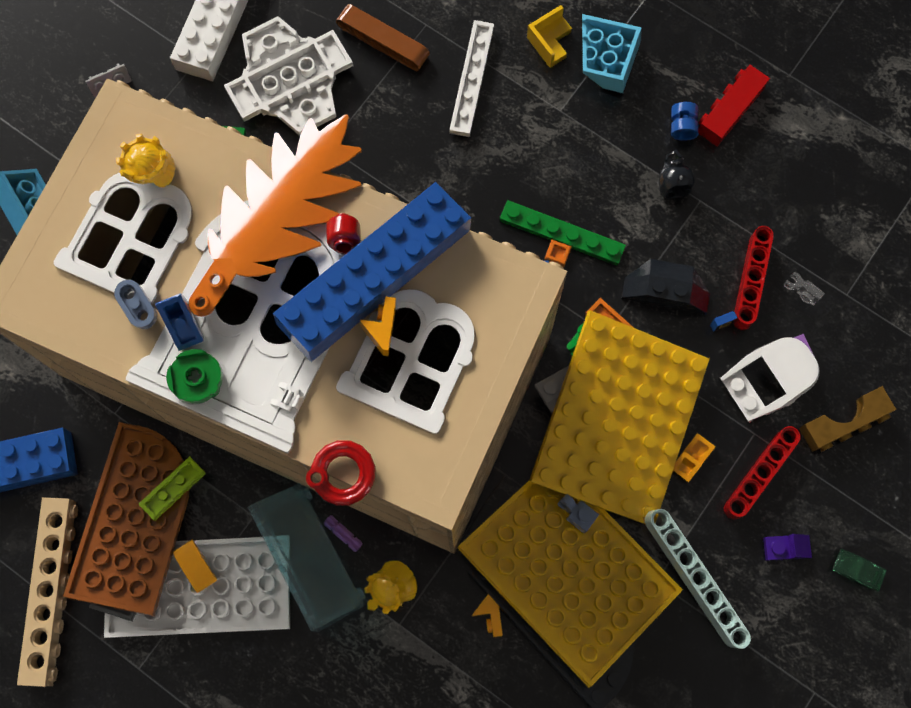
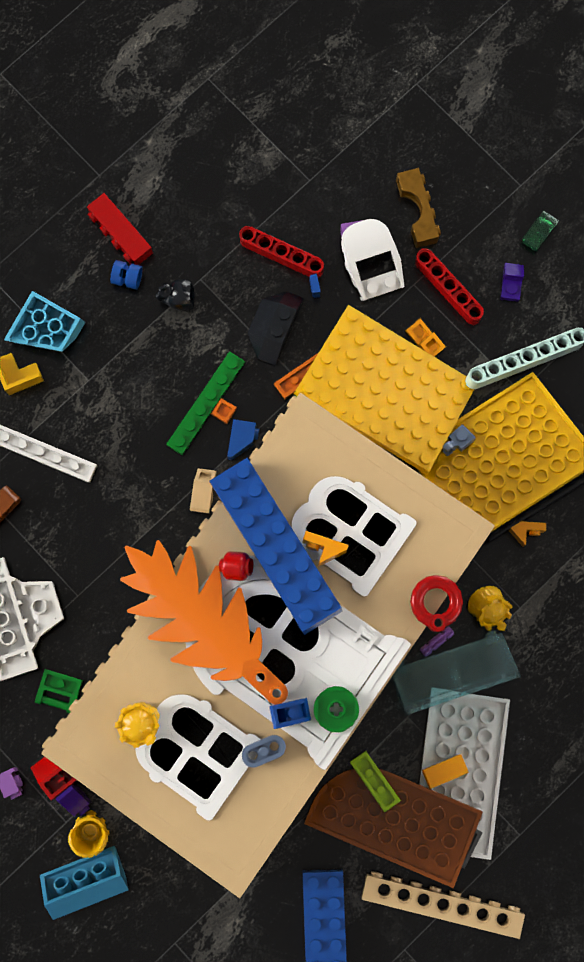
camera: 80 degrees left, 5 degrees up
(808, 291) = (303, 210): clear plate -> none

